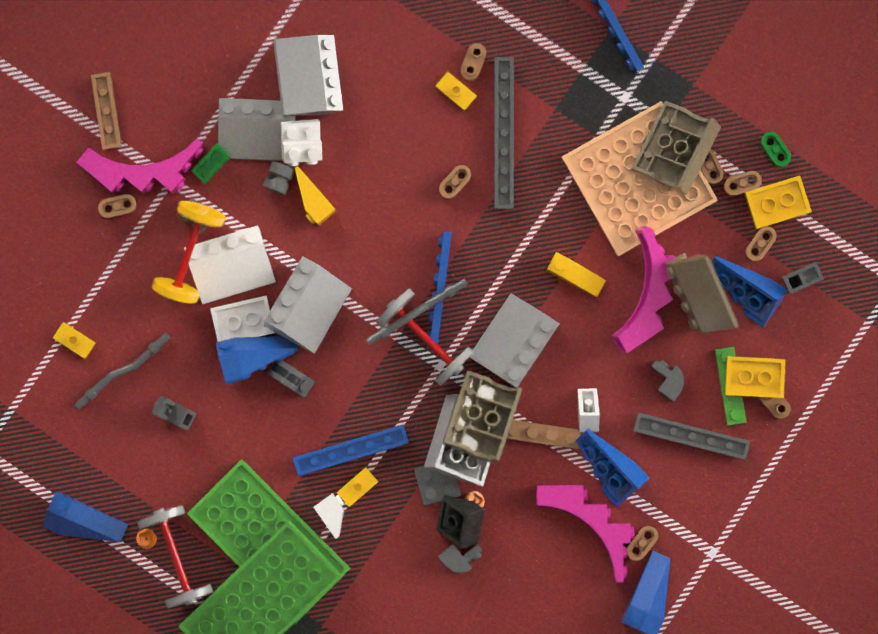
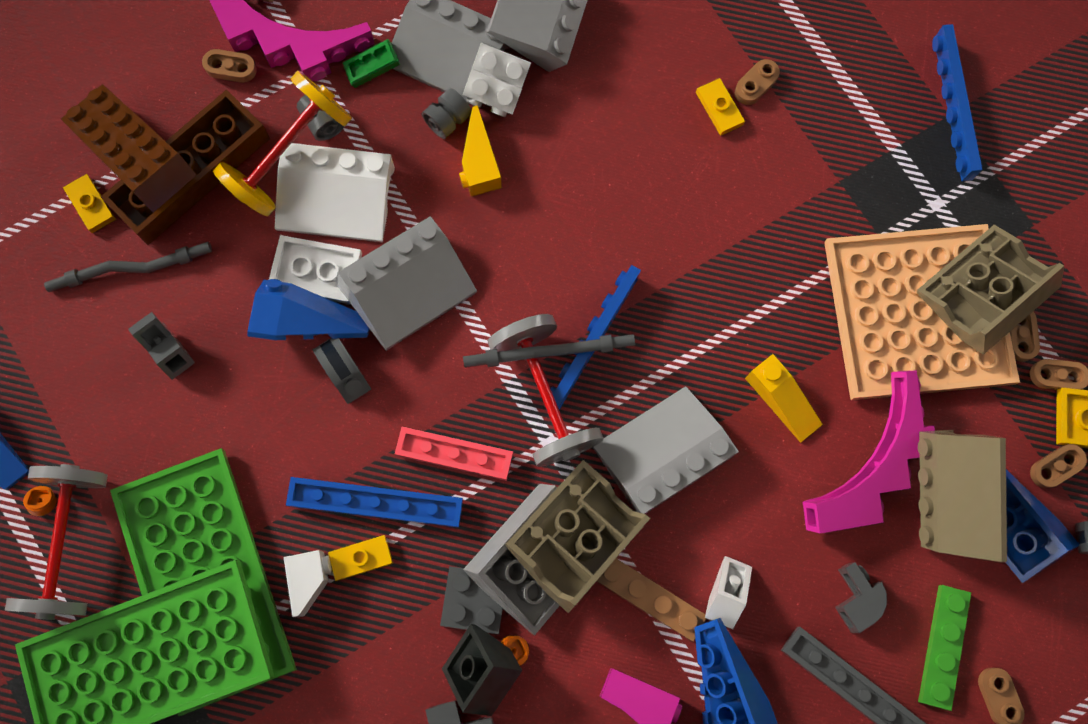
camera: 20 degrees right, 10 degrees down
(90, 297) = (129, 147): none -> reddish brown brick
(128, 290) = (215, 135): none -> reddish brown brick
(385, 399) = (454, 453): none -> coral plate
(455, 182) = (670, 213): medium nougat plate -> none
(504, 134) = (760, 182): dark grey plate -> none
(755, 377) = (991, 650): yellow plate -> none

